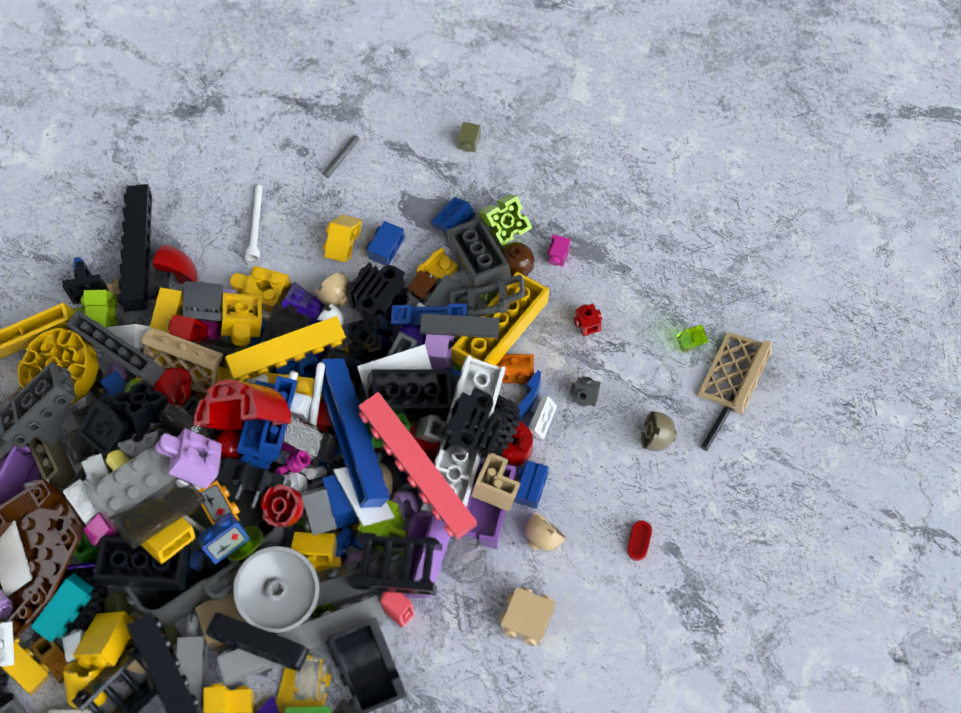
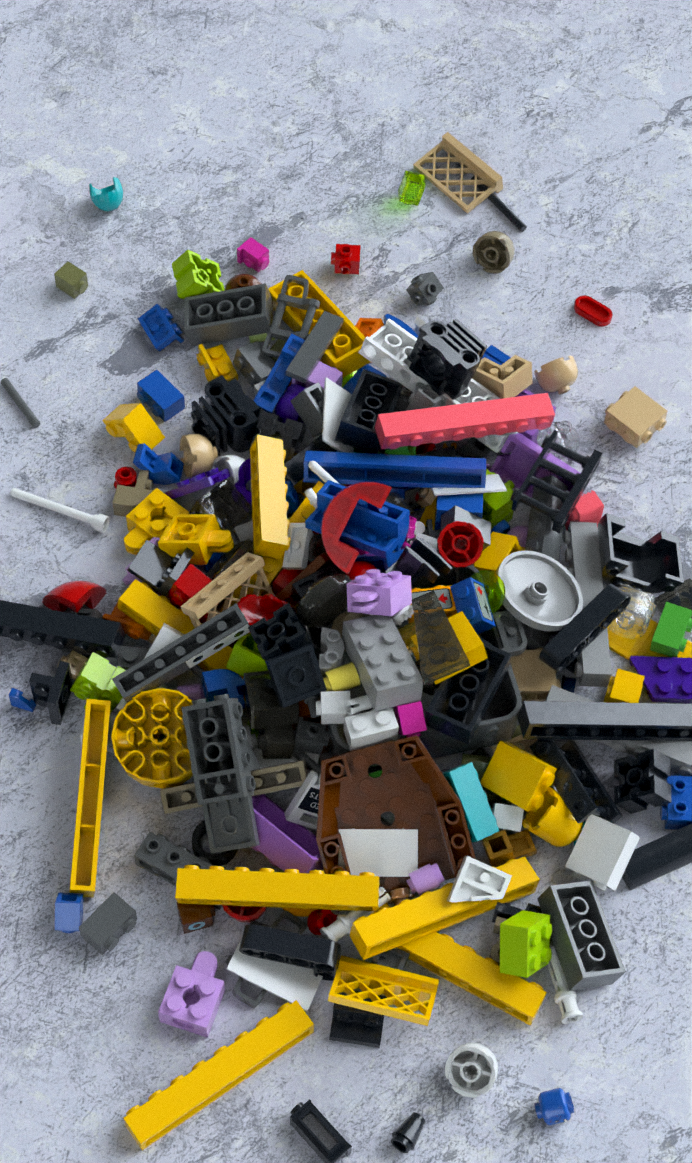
camera: 75 degrees left, 5 degrees down
(277, 262) = (127, 497): none -> dark tan brick
(297, 254) = (125, 476): none -> red brick
(314, 266) = (162, 468): none -> blue brick
(421, 285) = (238, 370): reddish brown brick -> none
(563, 124) = (108, 197): none -> teal hair

